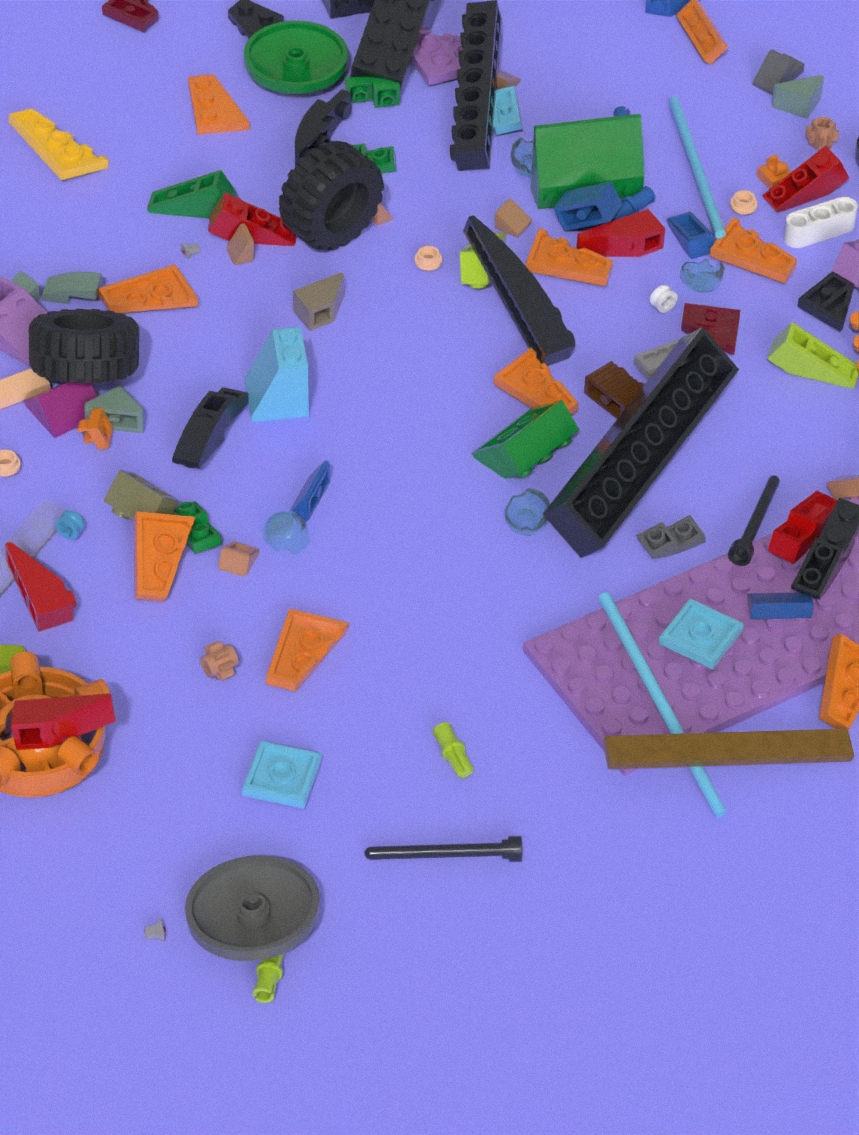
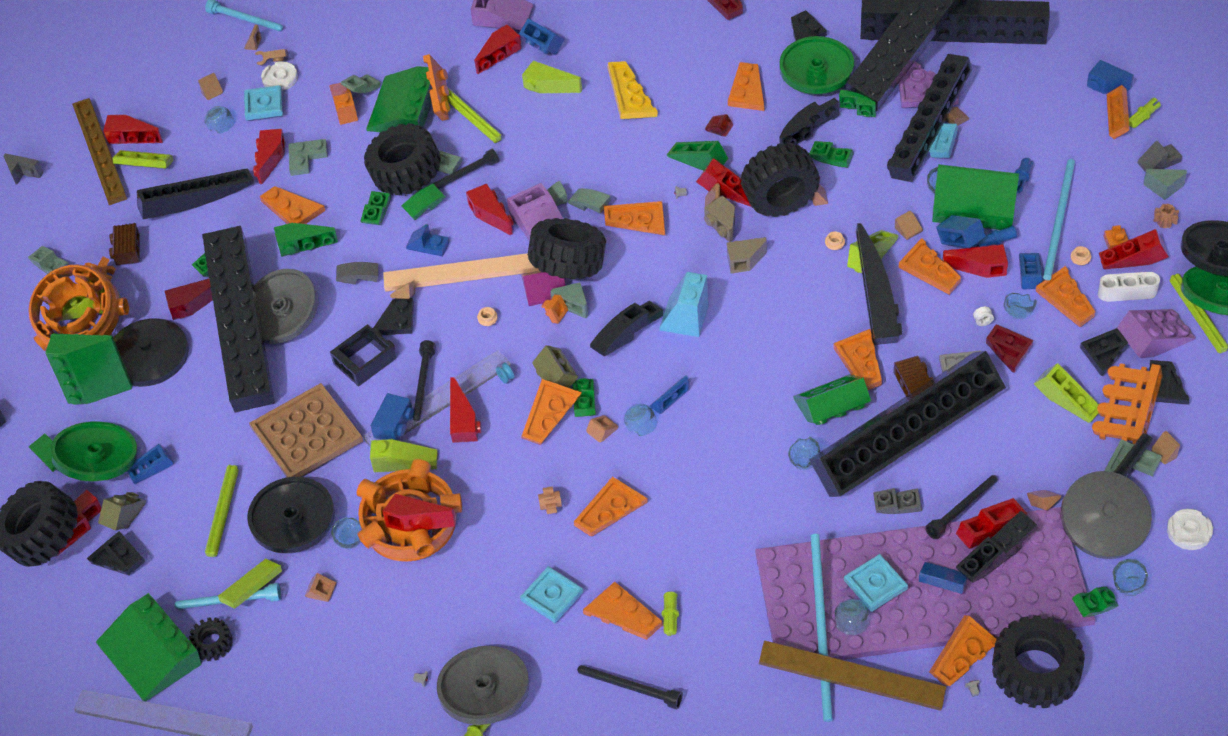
camera: 30 degrees right, 5 degrees up
(200, 158) = (719, 125): none -> clear red slope
(266, 265) = (721, 216): none -> dark tan slope
(385, 764) = (623, 610): none -> orange wing
(692, 681) = (851, 616): none -> clear light blue hair
(733, 24) = (1143, 113): none -> lime axle

